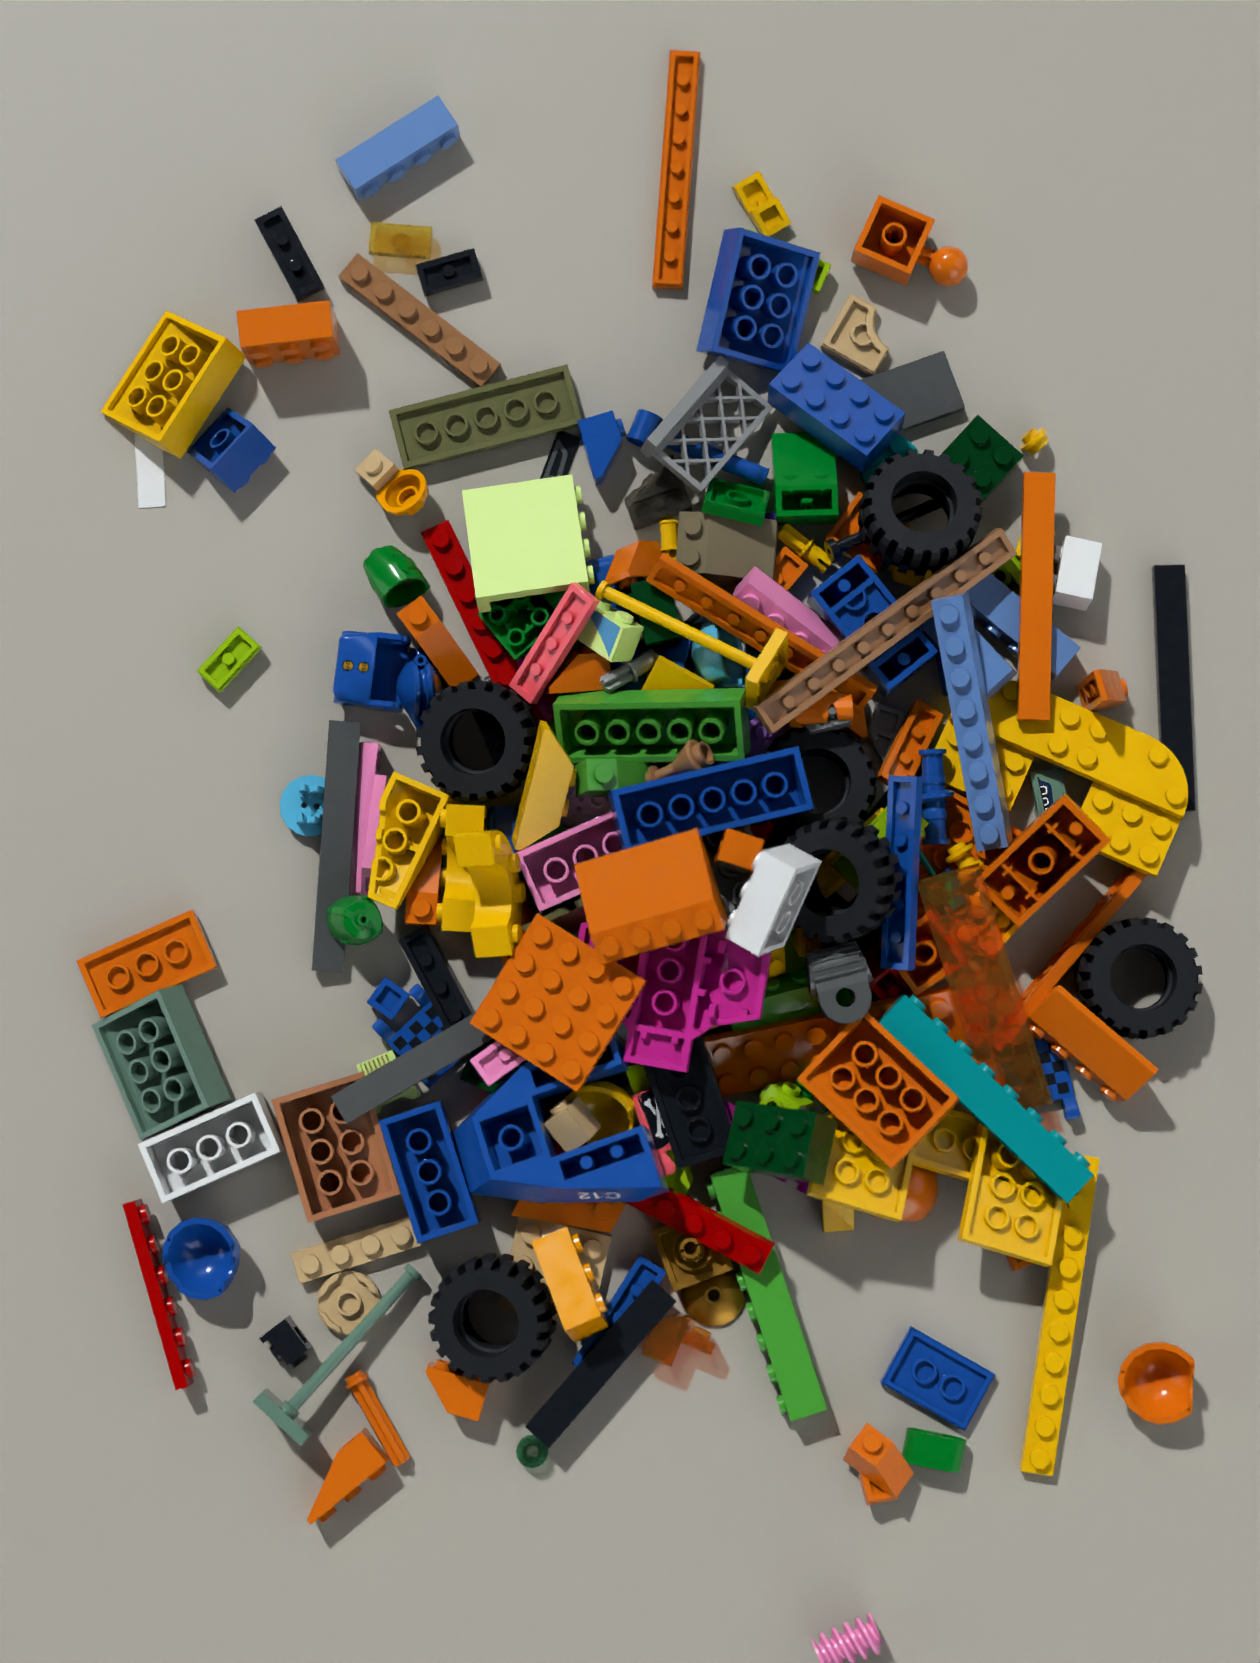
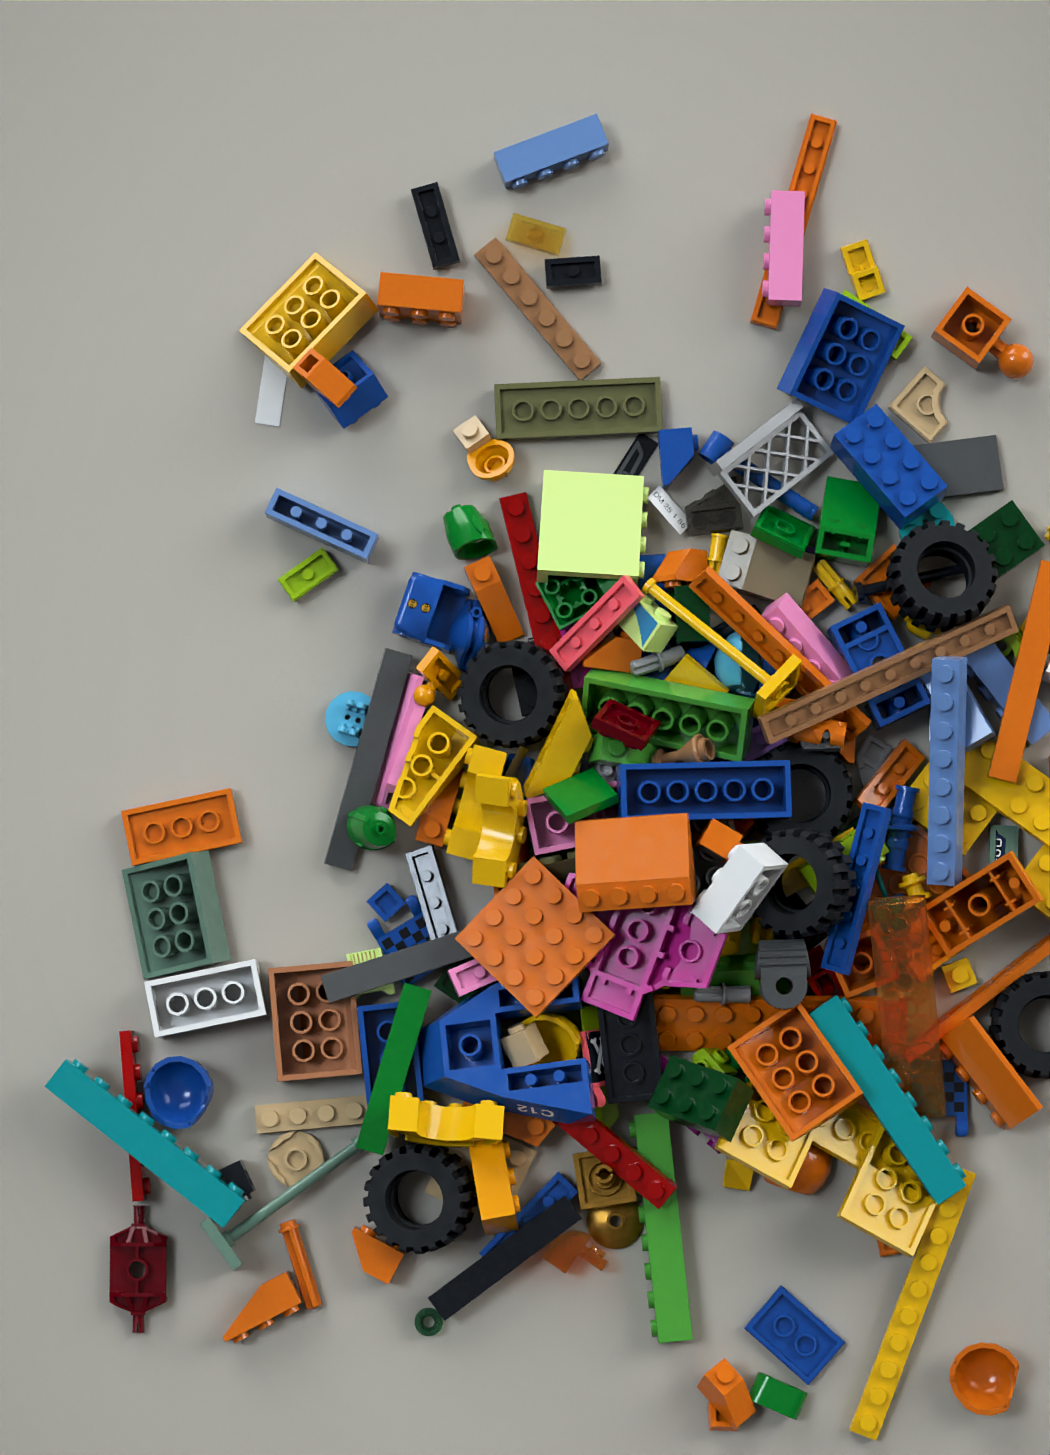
camera: 10 degrees right, 0 degrees up
(175, 1322) = (145, 1142): none -> teal brick
(199, 439) = (324, 377): none -> orange slope
(203, 1436) = (148, 1247): none -> dark red plate
(232, 602) = (322, 525): none -> medium blue brick
(395, 737) = (441, 676): none -> light orange plate
(433, 1181) = (393, 1066): none -> green tile
(498, 813) = (516, 762): none -> dark tan sticker
(500, 1233) = (445, 1126): none -> yellow brick
(575, 835) = (581, 795): none -> green tile
(607, 505) = (668, 509): none -> white sticker
(608, 746) = (625, 725): none -> dark red plate
(673, 197) = (785, 248): none -> bright pink brick
(780, 1020) = (723, 994): none -> light grey axle
(1031, 943) = (958, 975): none -> yellow plate

